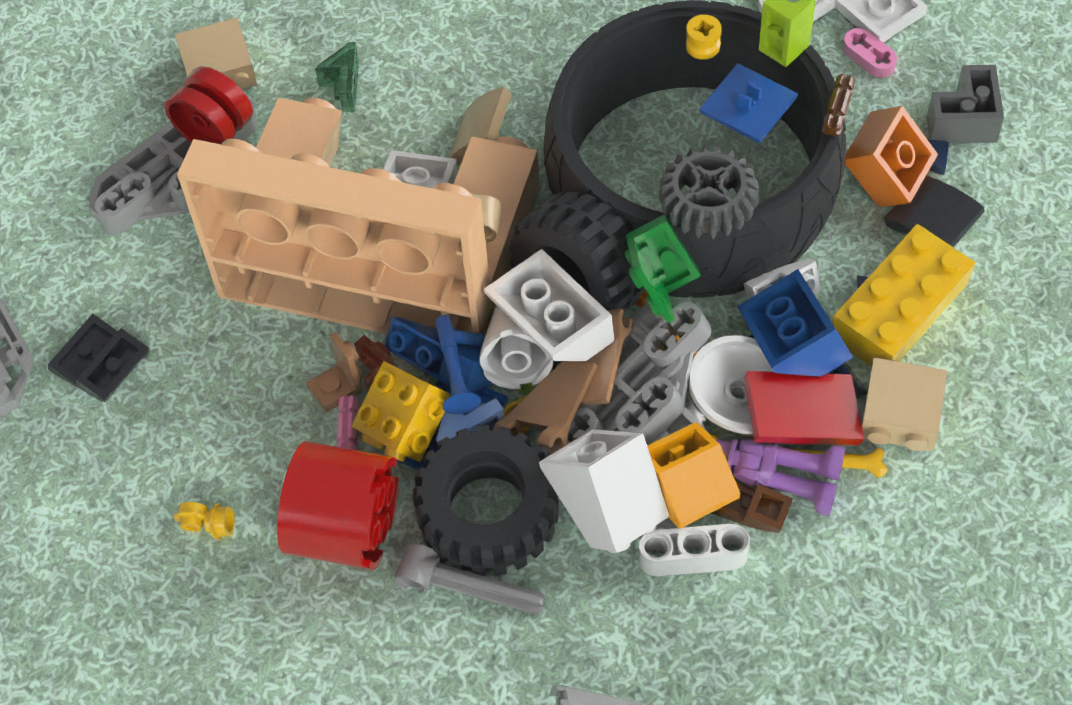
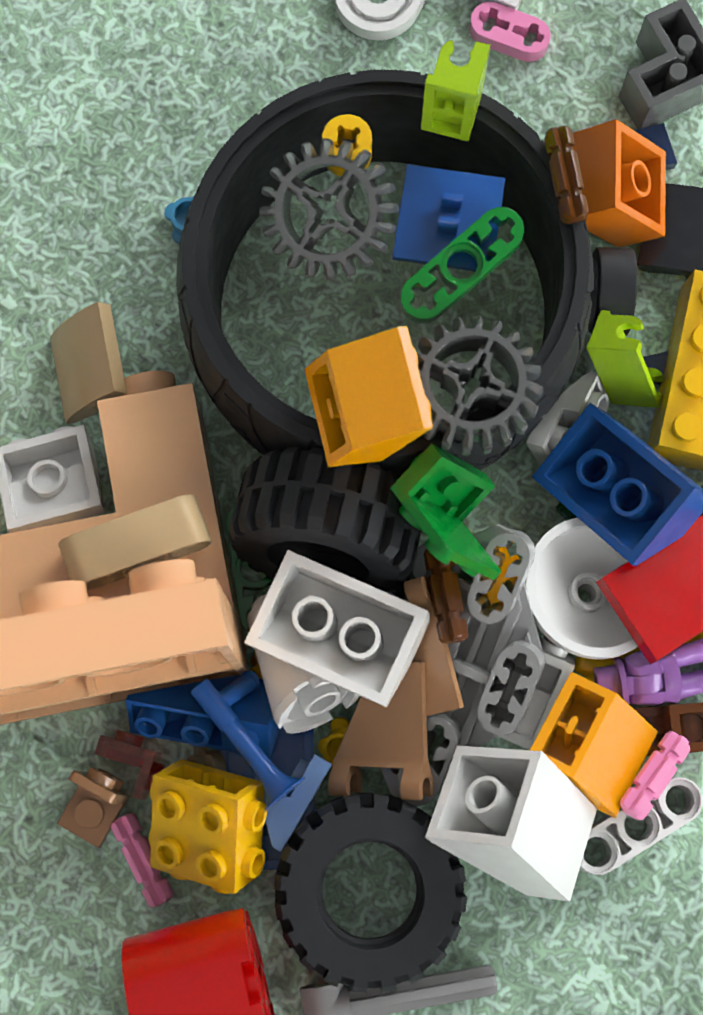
camera: 30 degrees left, 20 degrees up
(632, 328) = (446, 600): none -> reddish brown axle
(635, 166) = (368, 398): none -> light orange slope
(644, 73) = (343, 189): none -> dark grey gear
(721, 513) = (654, 775): none -> bright pink axle
(768, 129) = (498, 251): none -> green beam
(833, 259) = (621, 362): none -> lime hinge
(852, 219) = (613, 283): none -> black tyre

